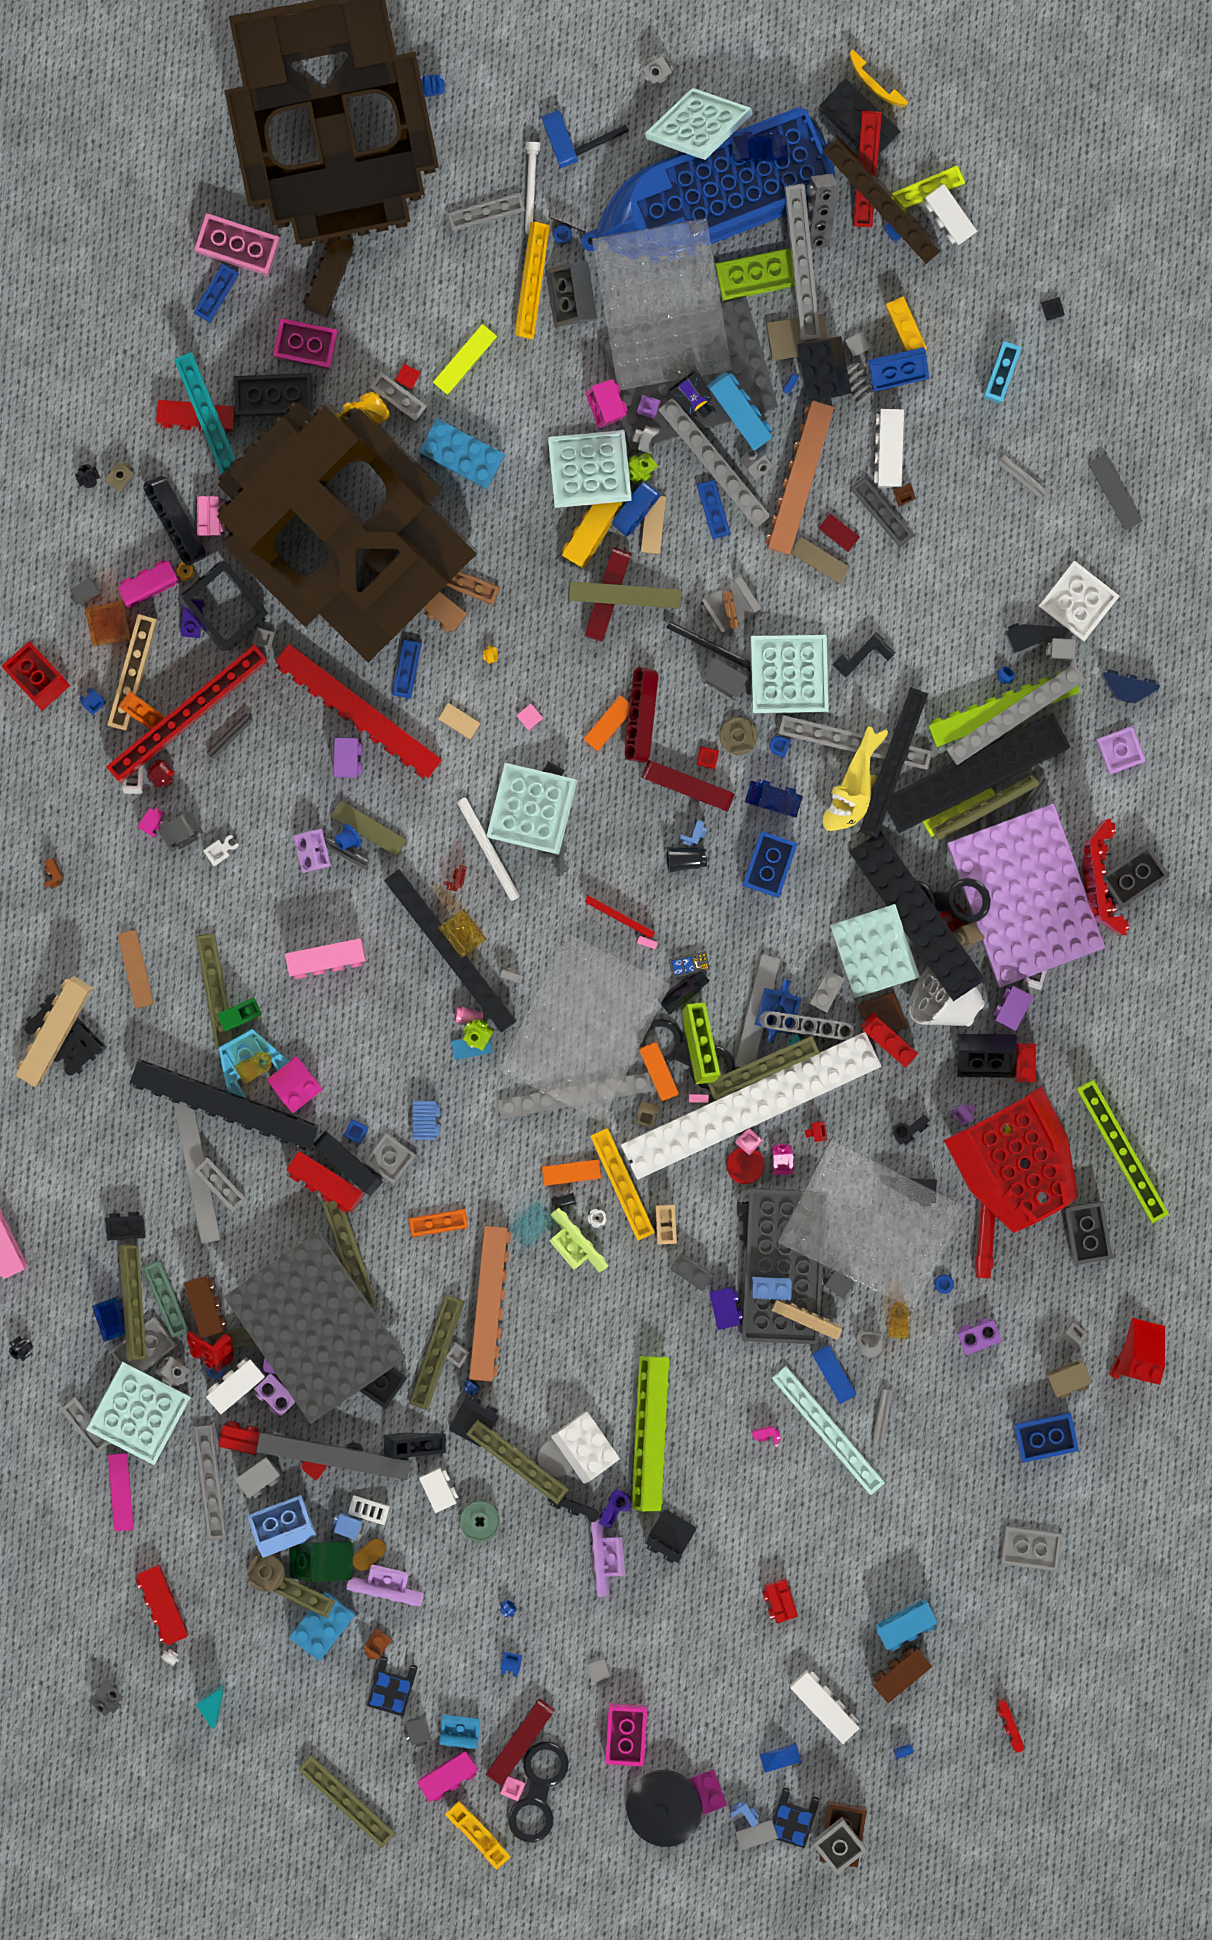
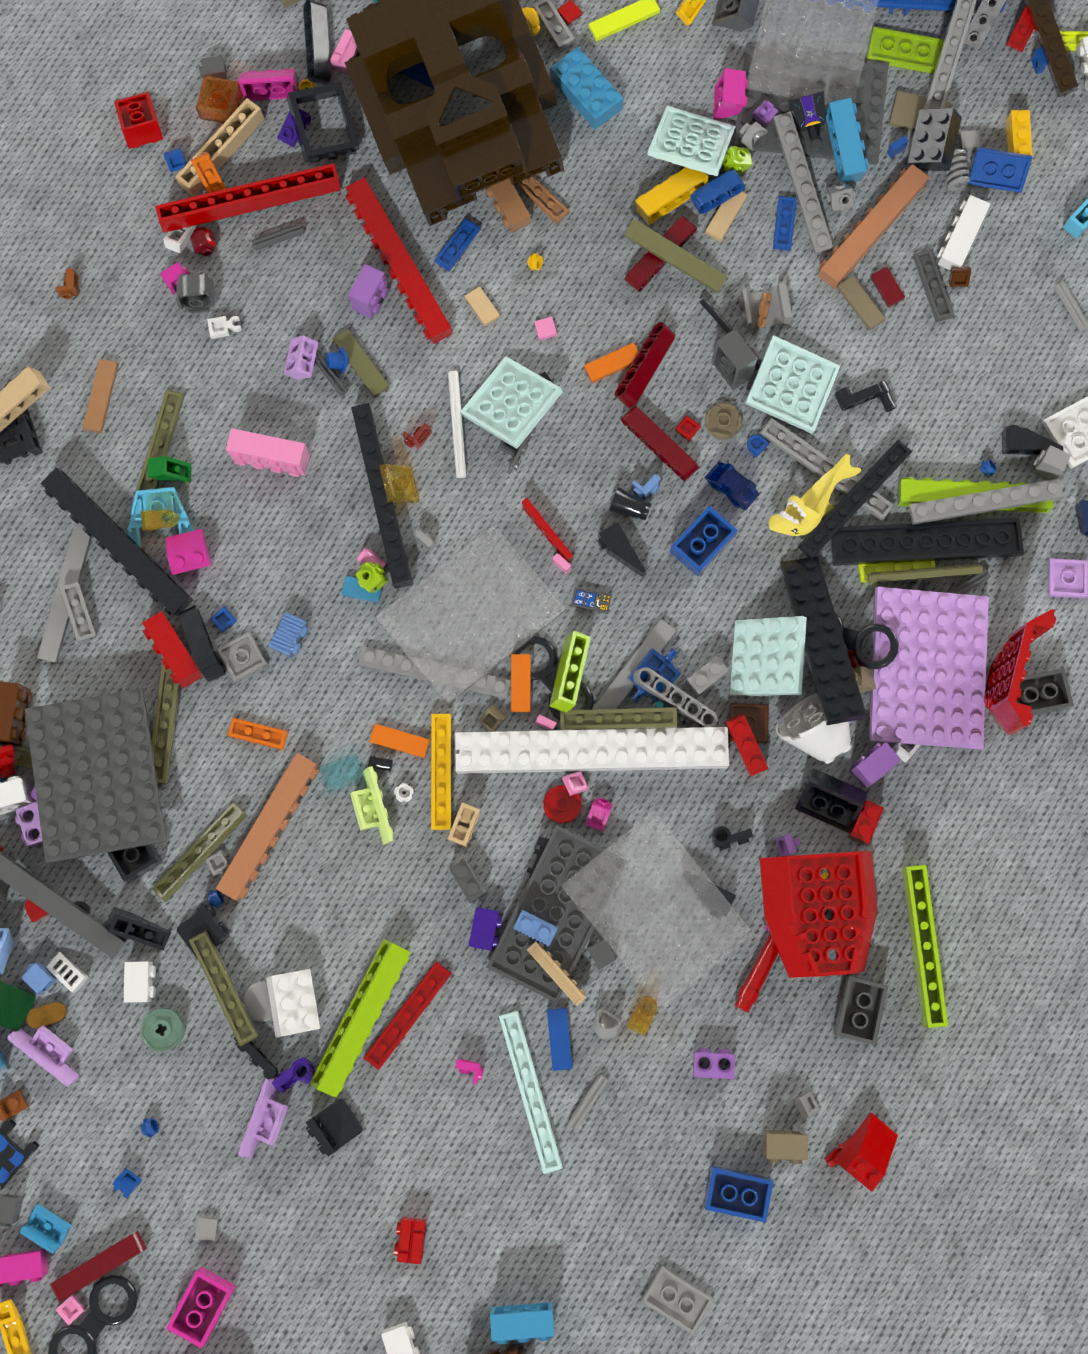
camera: 30 degrees right, 10 degrees down
(263, 638) = (346, 169): light grey tile -> none
(683, 992) = (575, 621): black hinge -> none
(690, 1413) = (407, 1015): none -> red tile
(691, 902) = (618, 546): none -> black slope
(818, 1131) = (643, 801): red tile -> none
(944, 1284) = (701, 998): blue tile -> none

